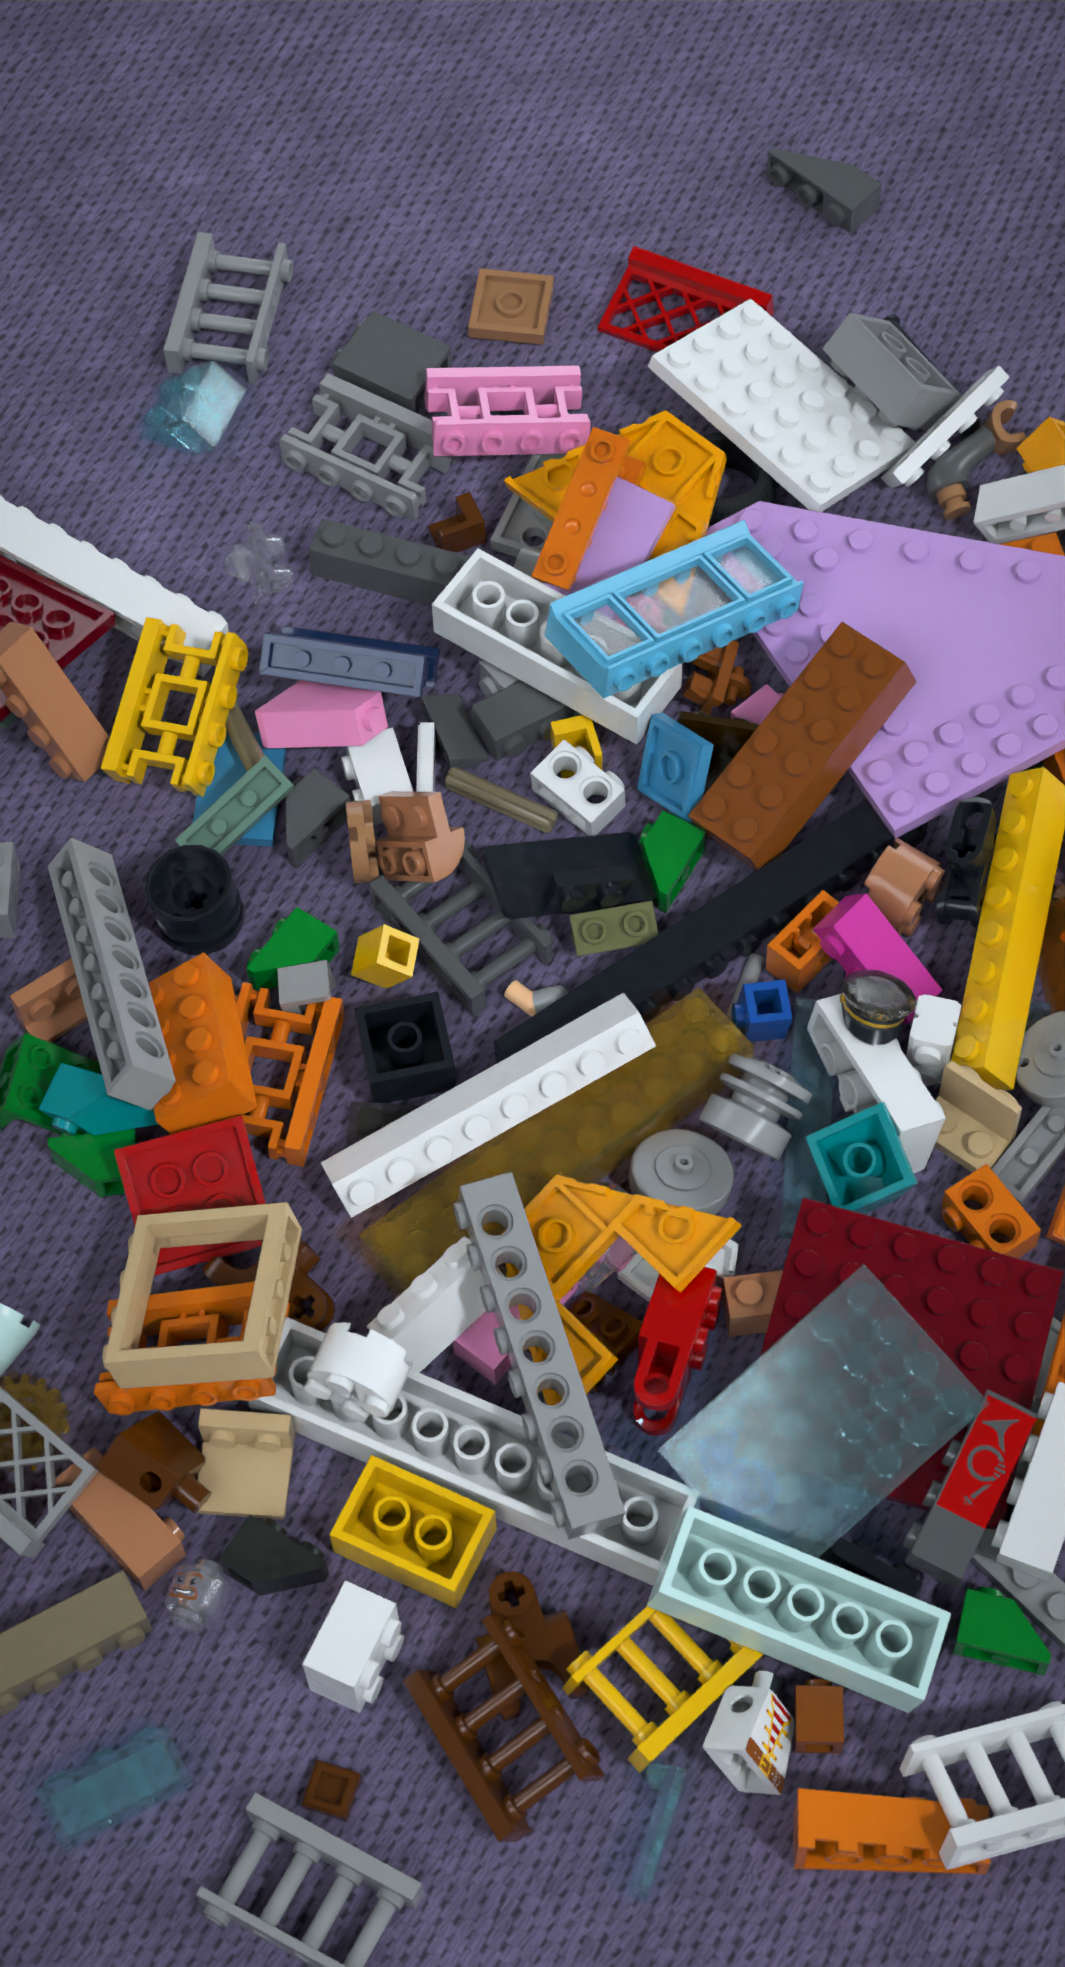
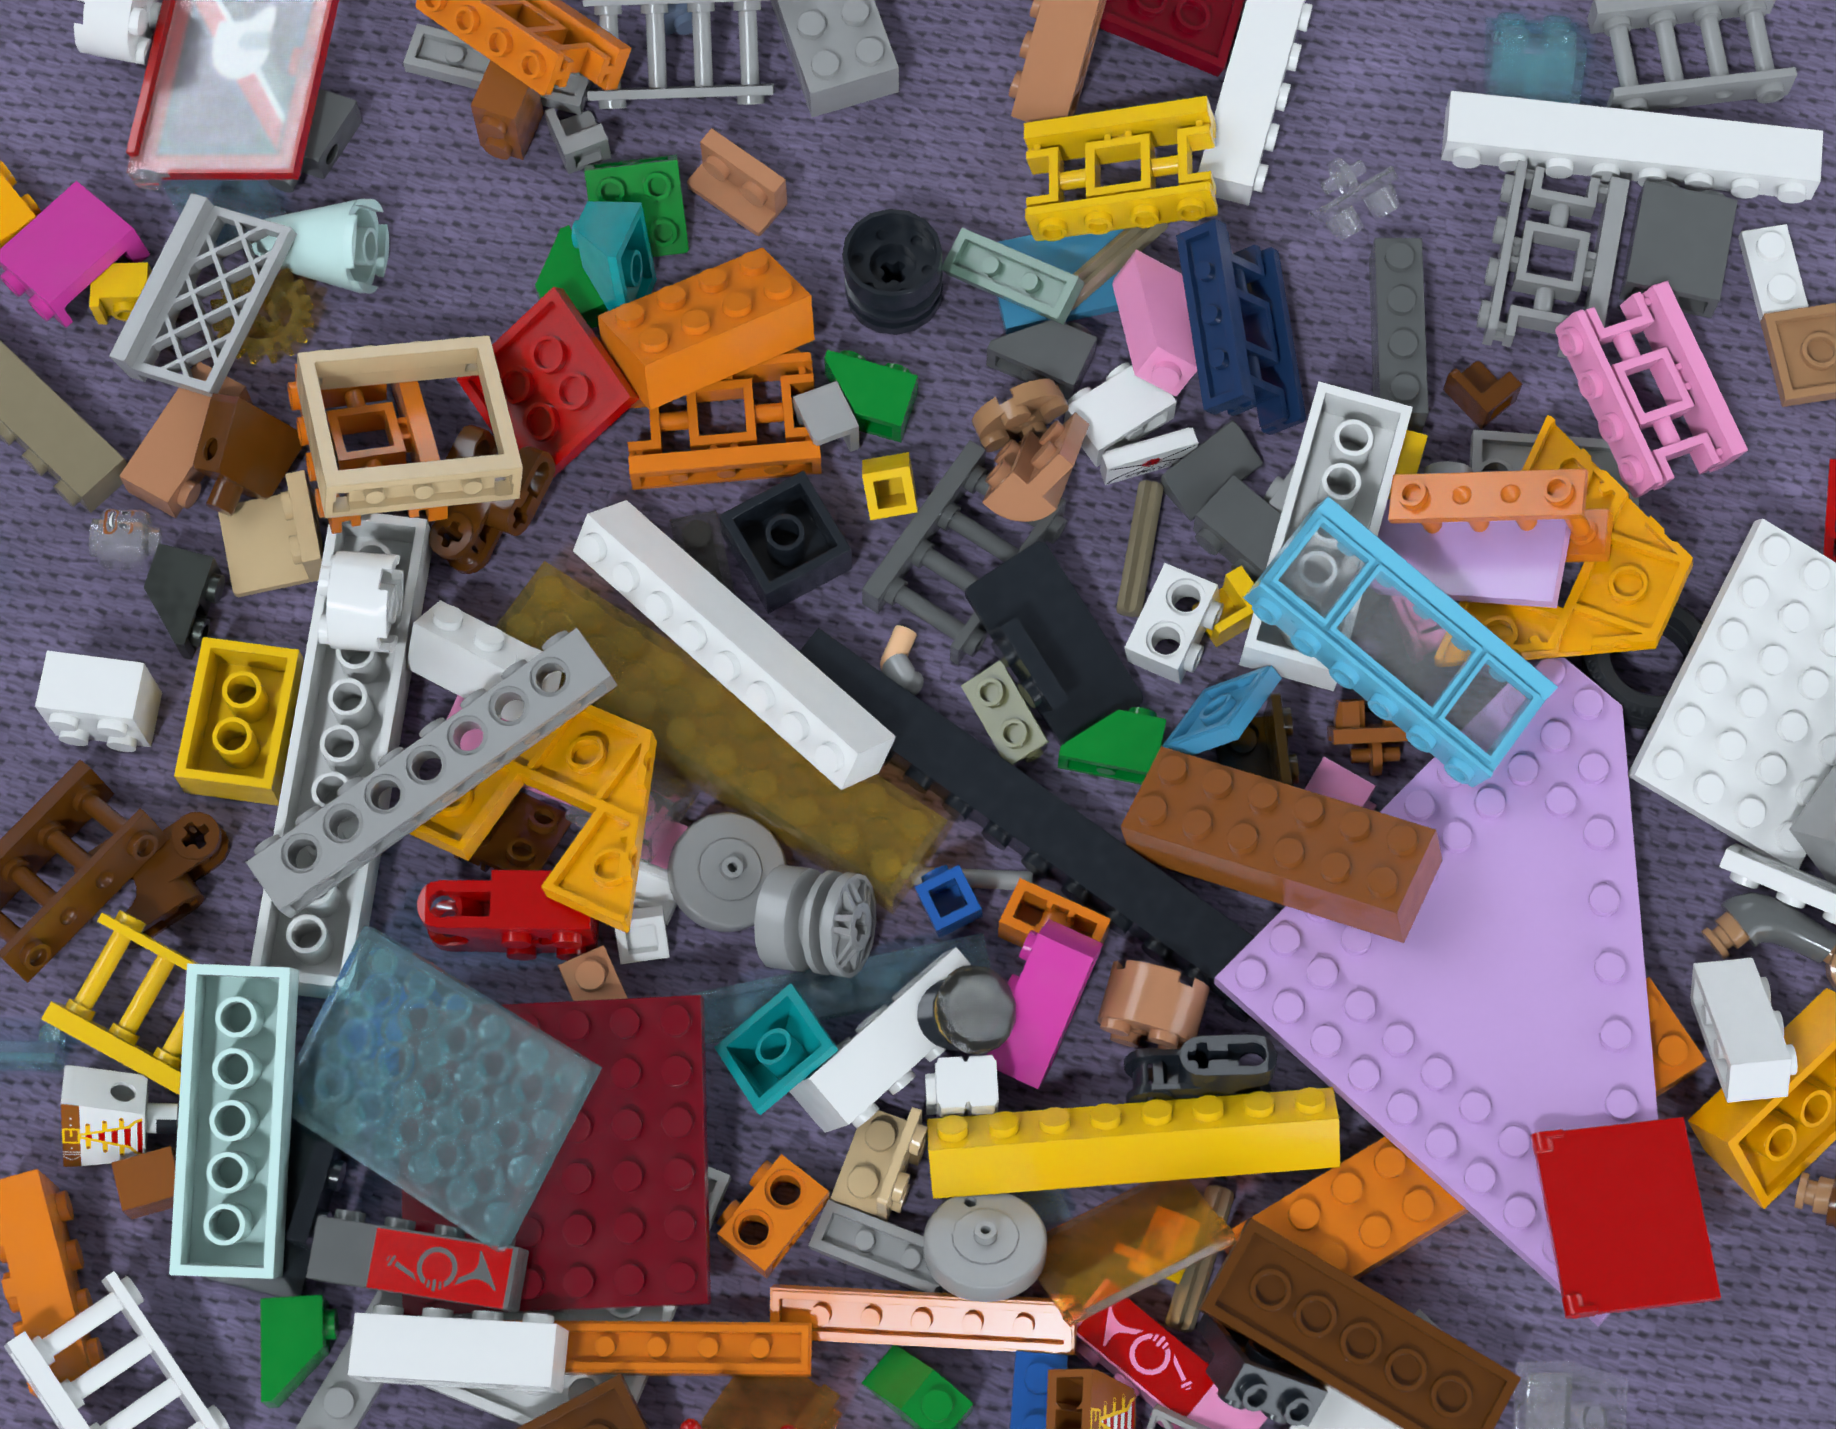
camera: 70 degrees right, 10 degrees up
(111, 975) = (617, 261): light grey brick -> none
(292, 372) = (1632, 146): none -> white brick
(434, 315) = (1772, 269): none -> white plate

